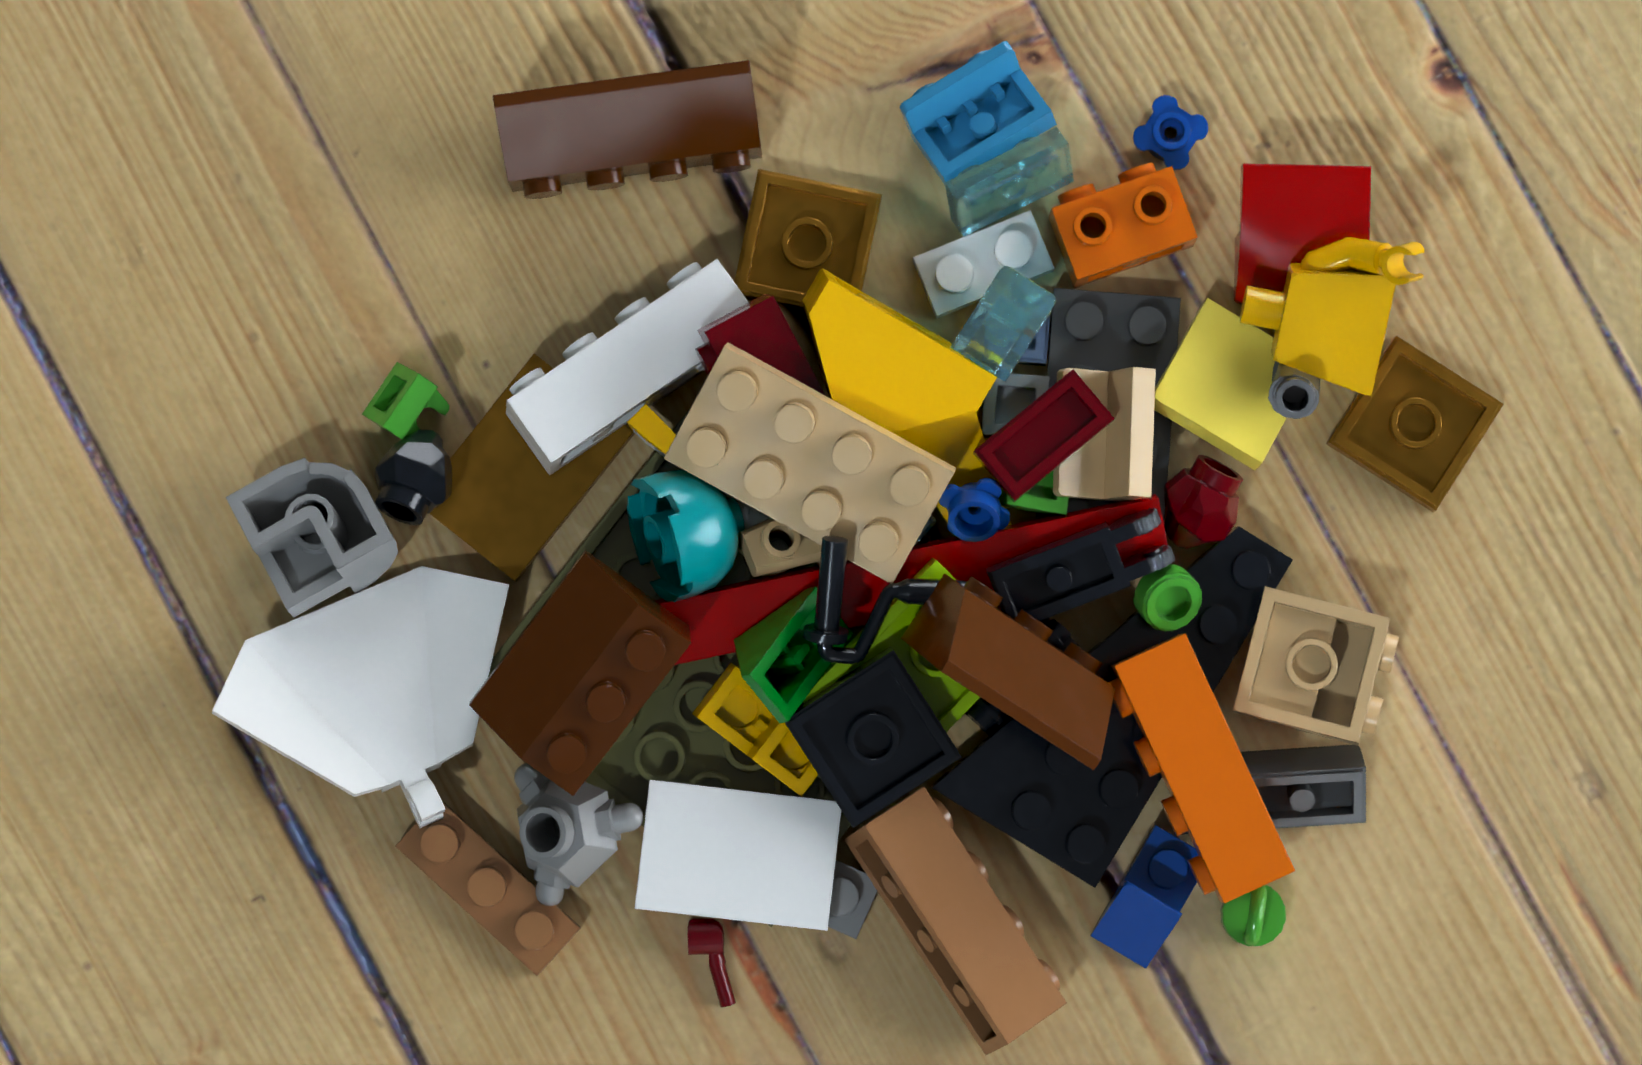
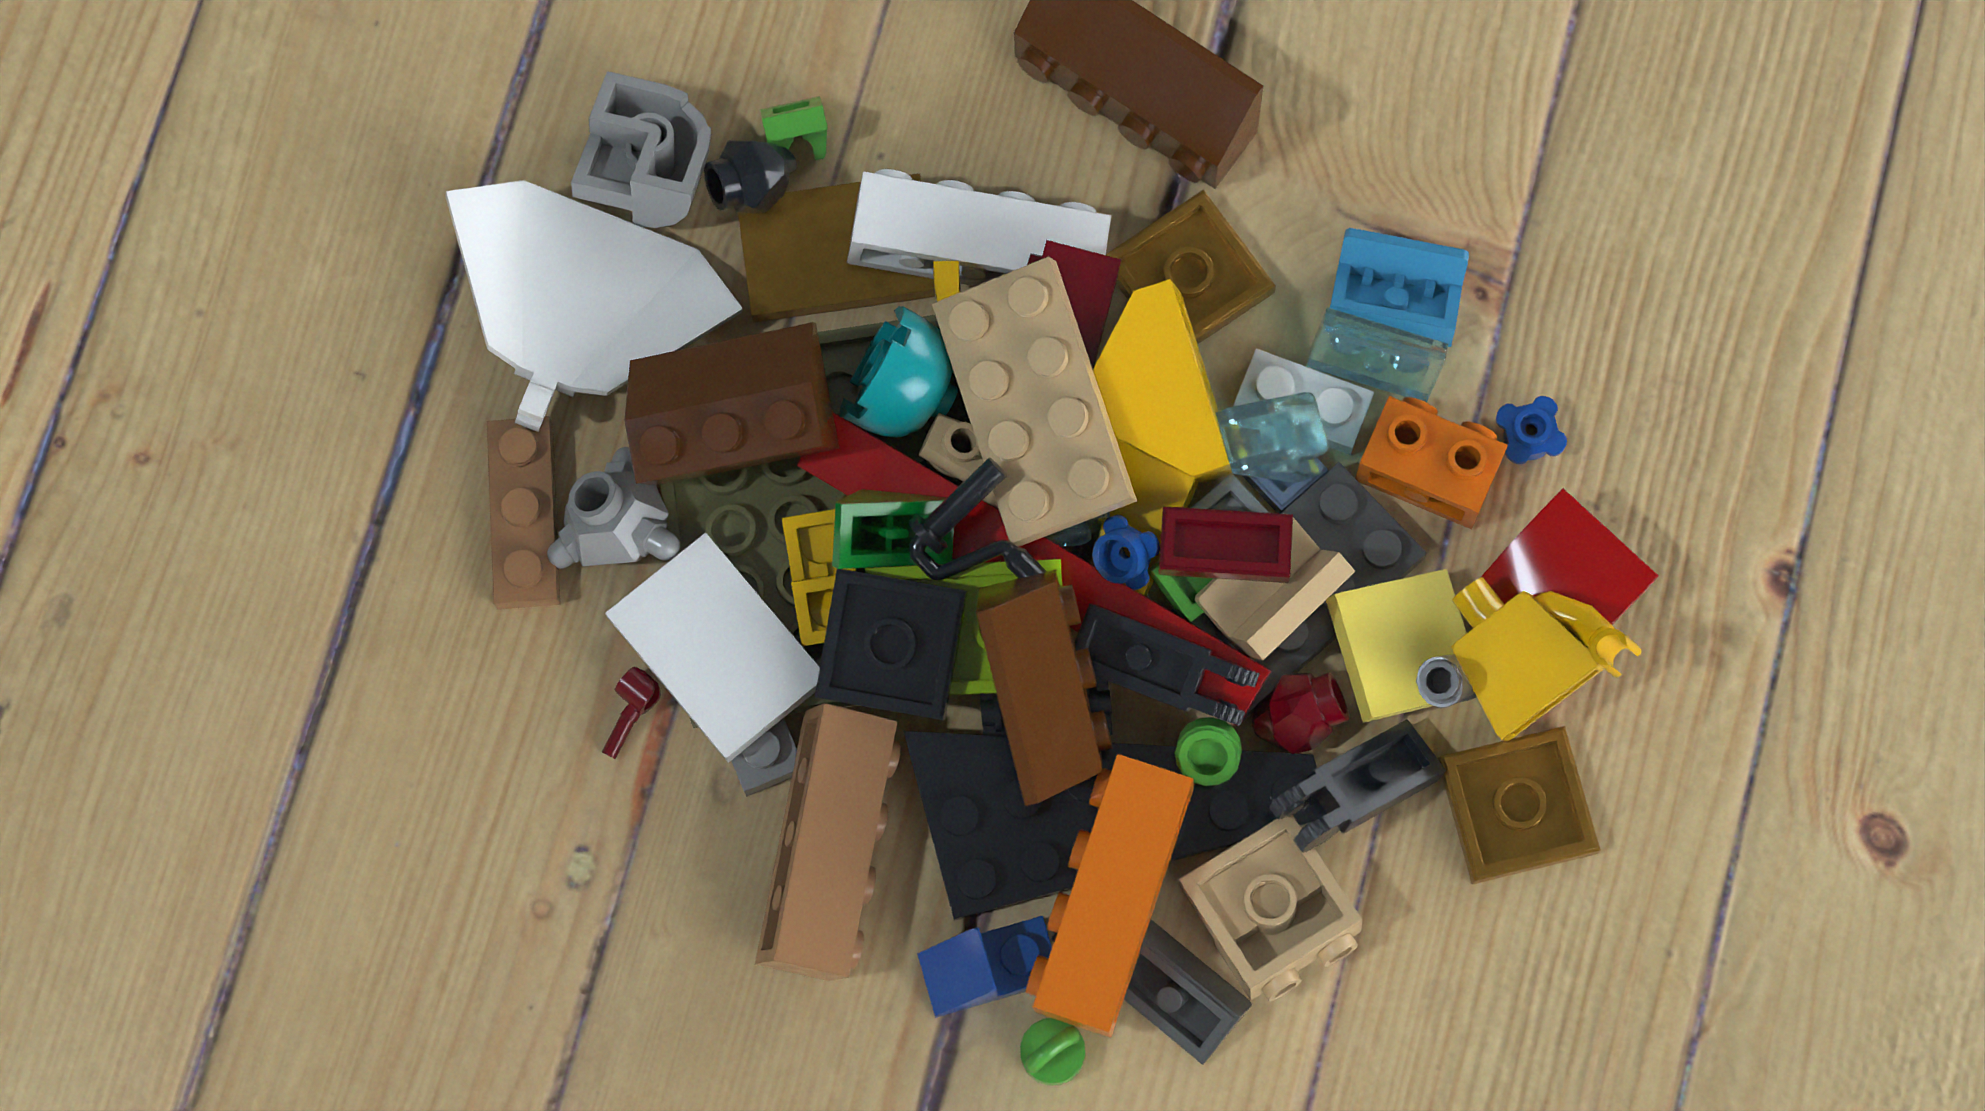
camera: 45 degrees right, 10 degrees down
(1297, 514) = (1362, 783): none -> black hinge

